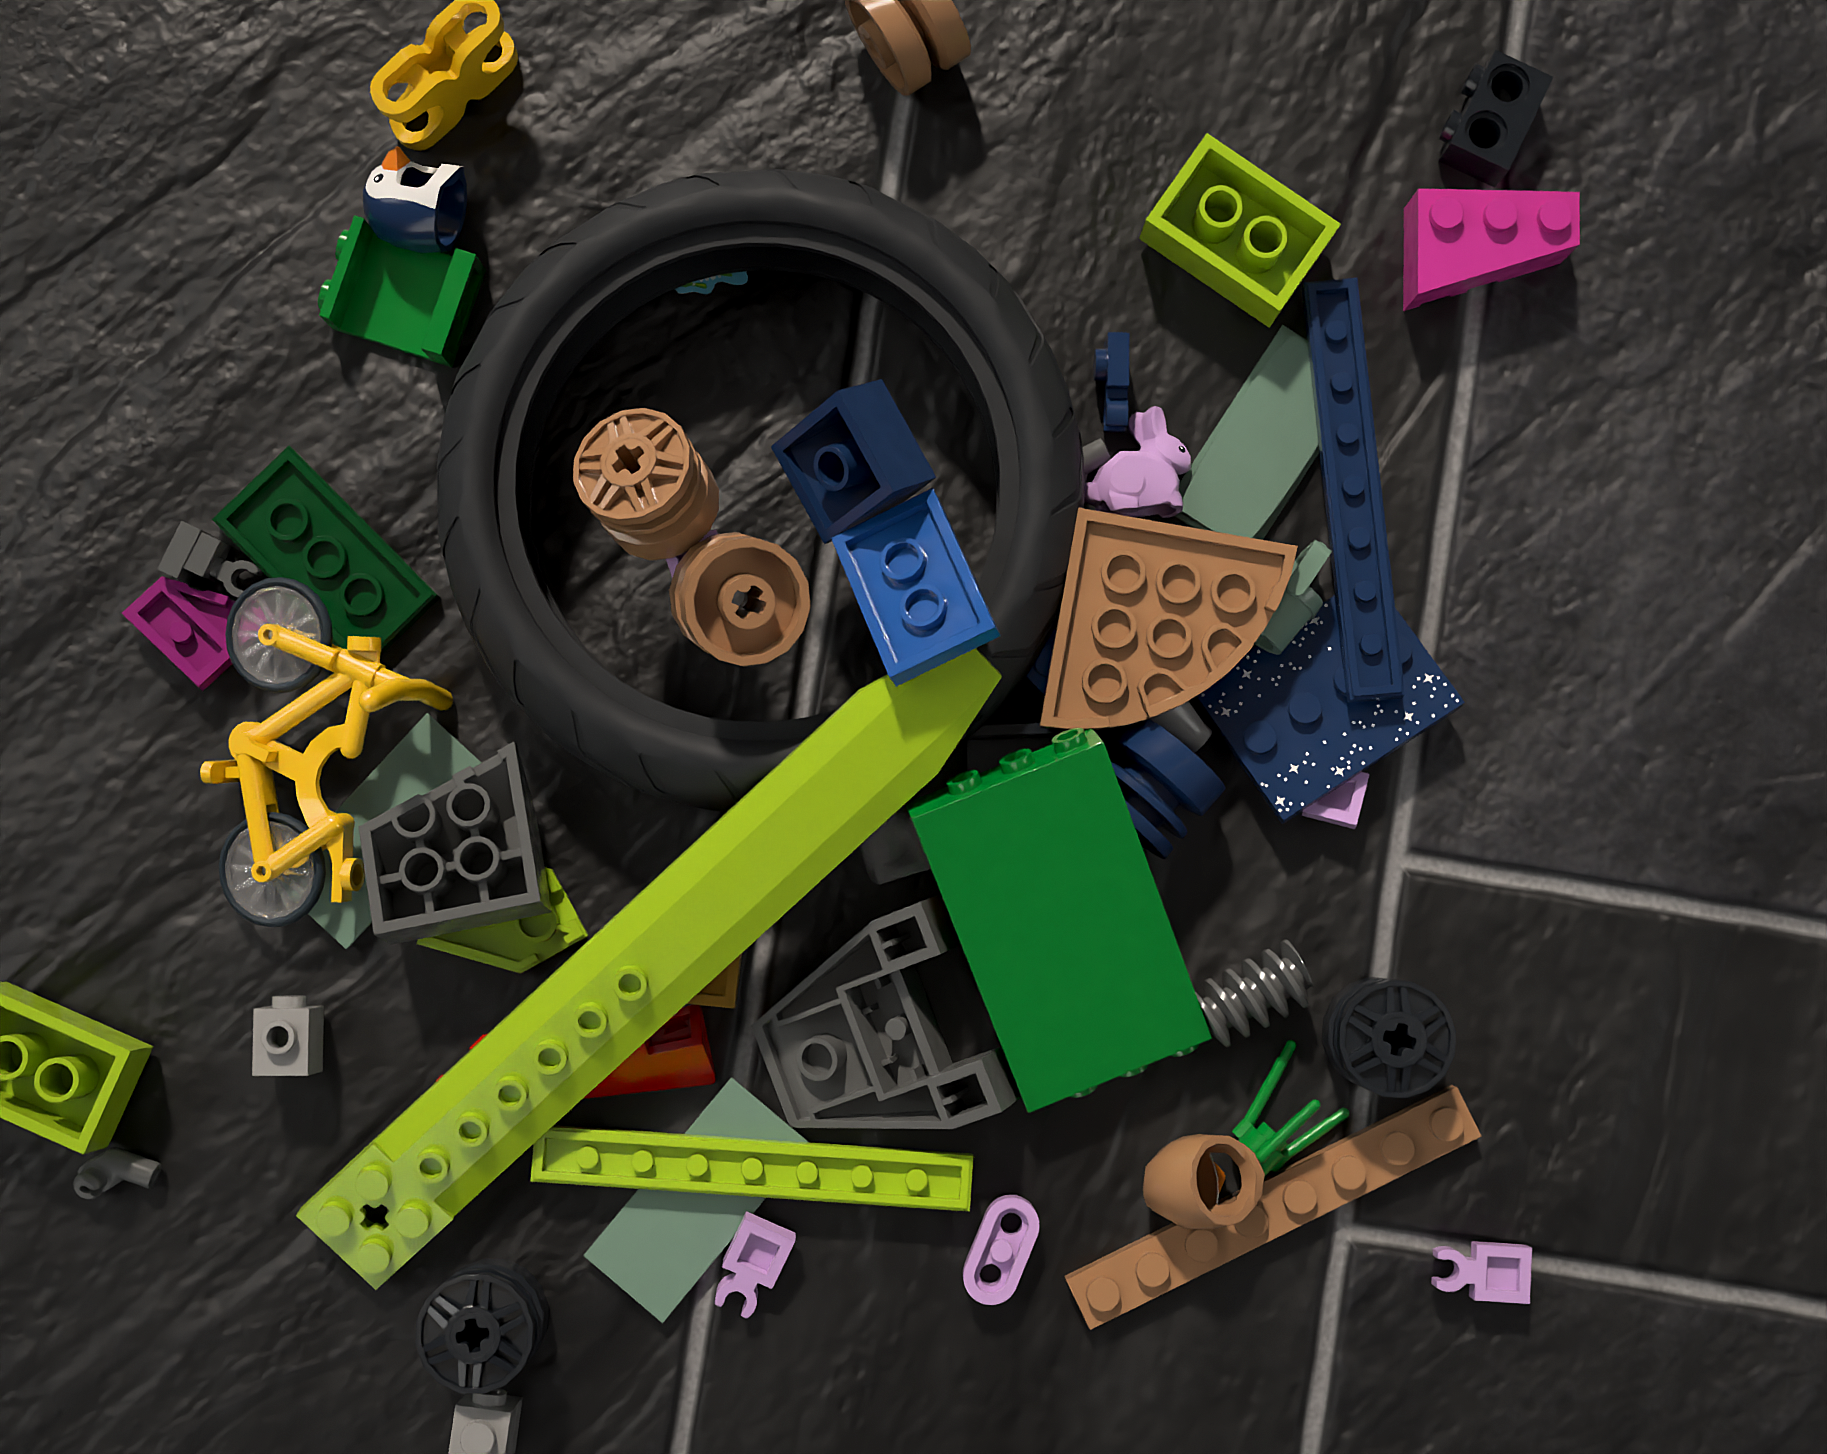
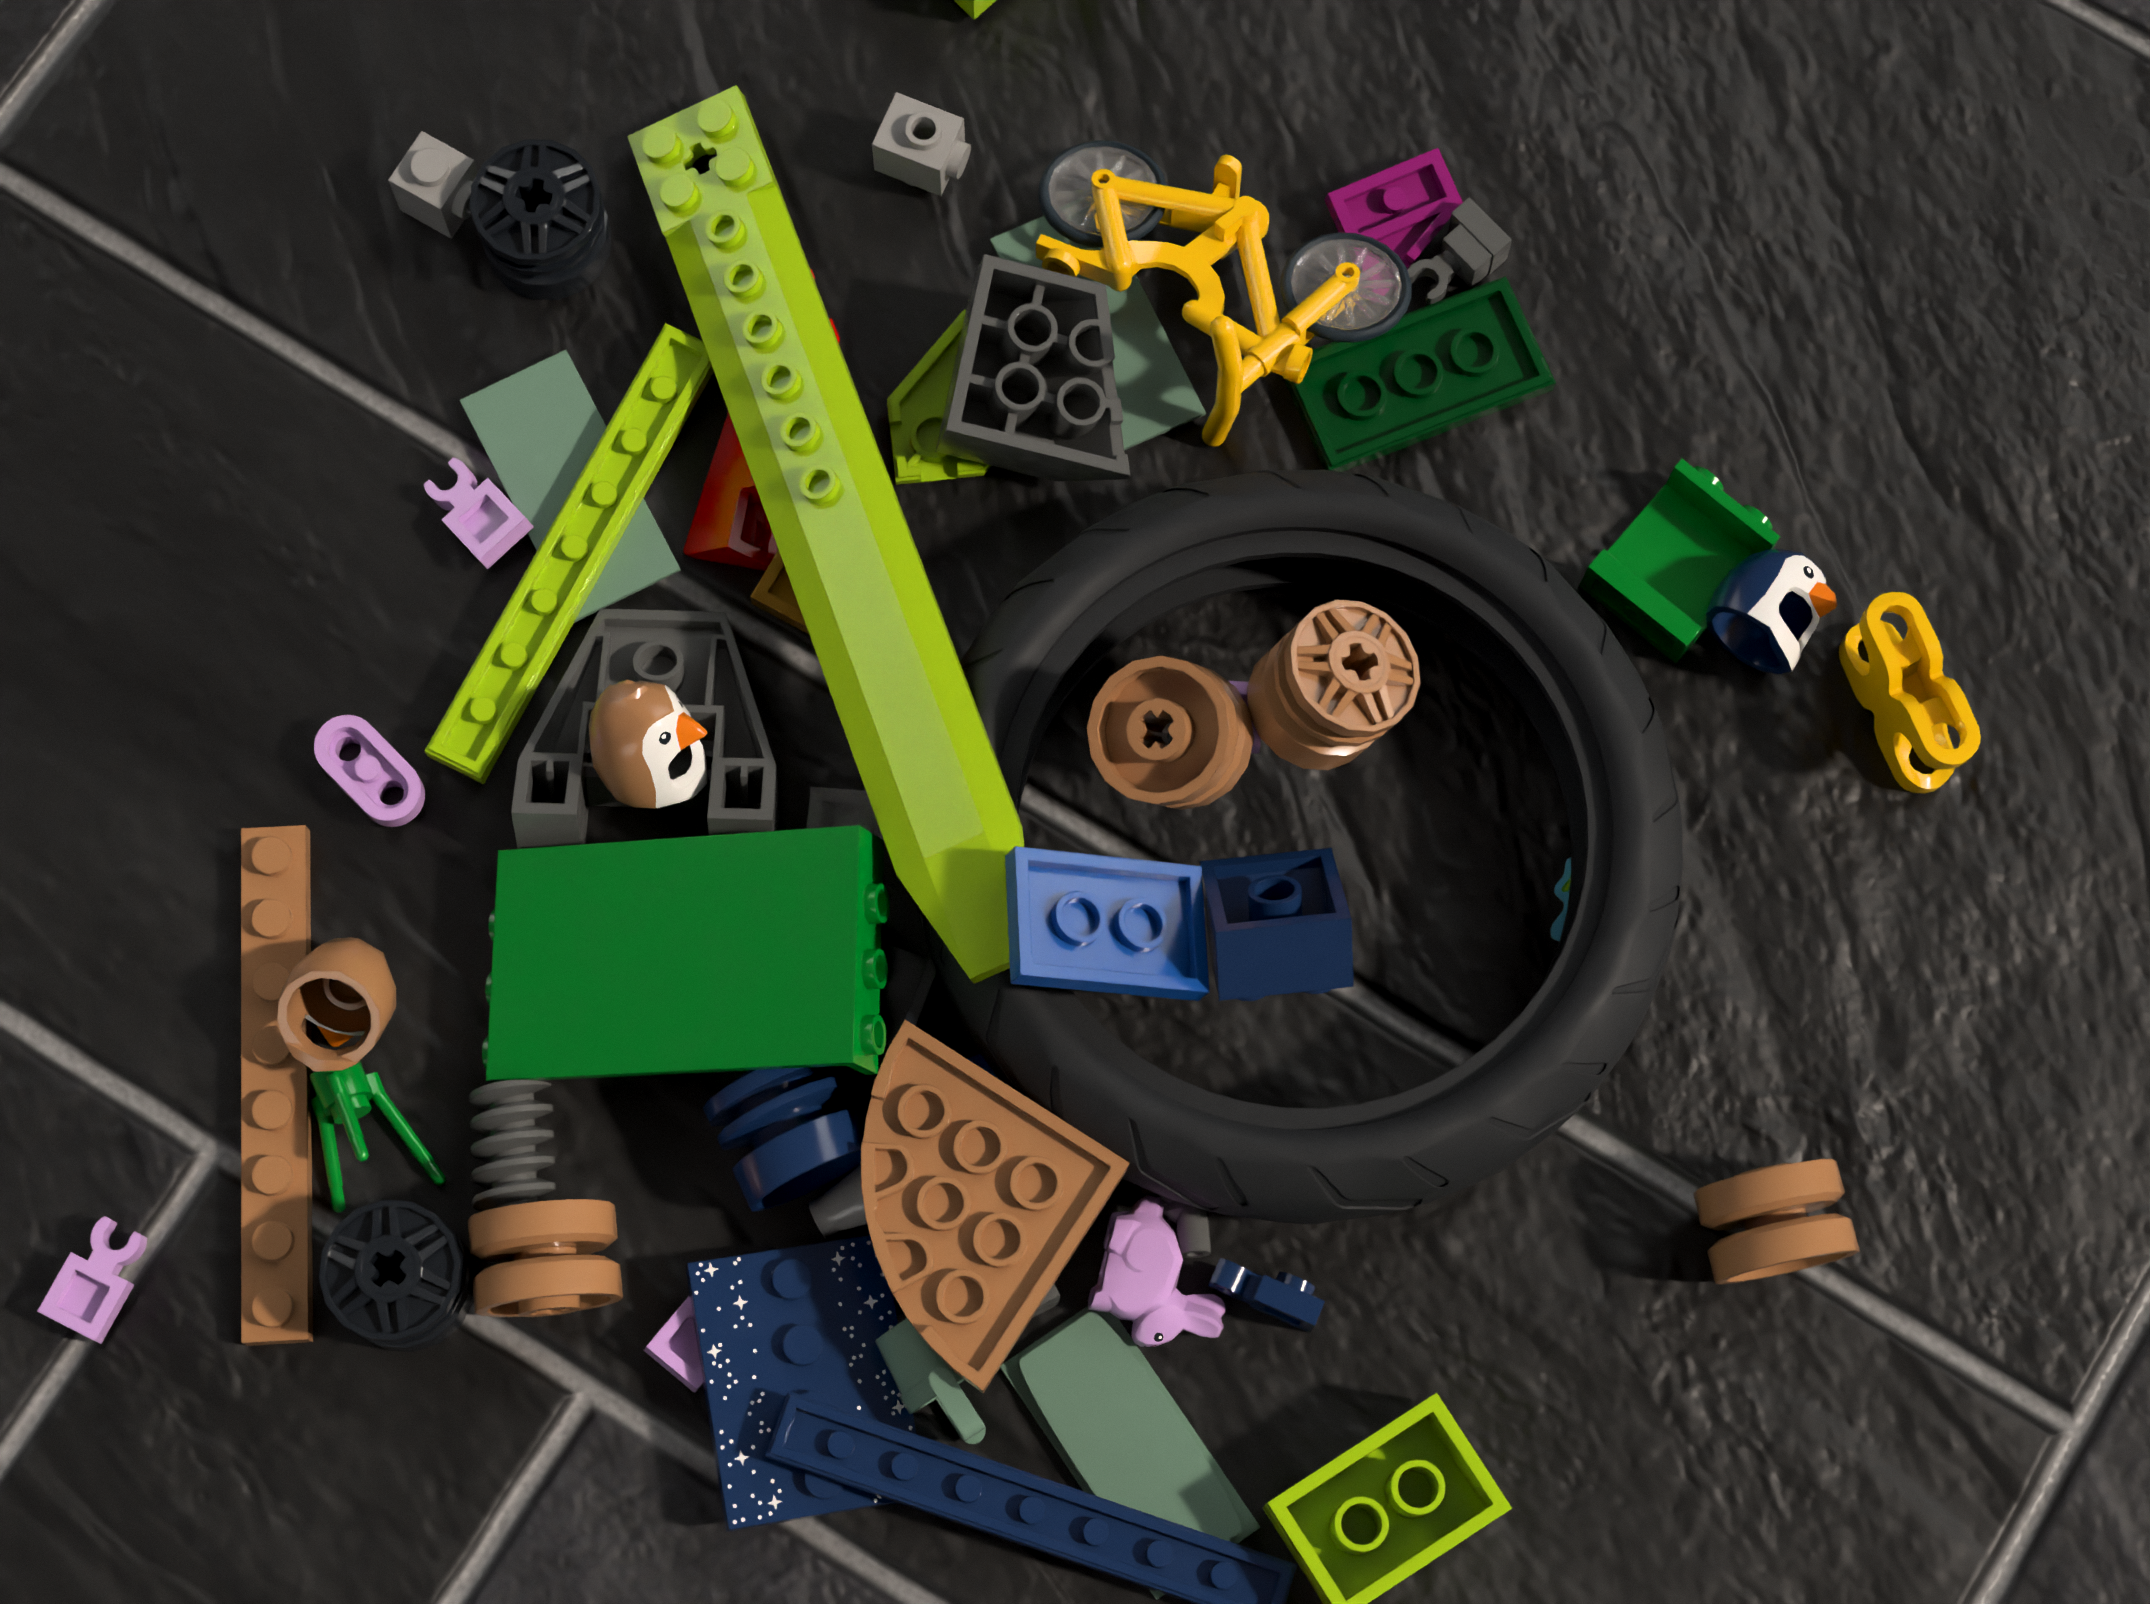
camera: 110 degrees right, 10 degrees down
(897, 1035) = (636, 736): none -> medium nougat piece
(1331, 927) = (544, 1258): none -> medium nougat wheel

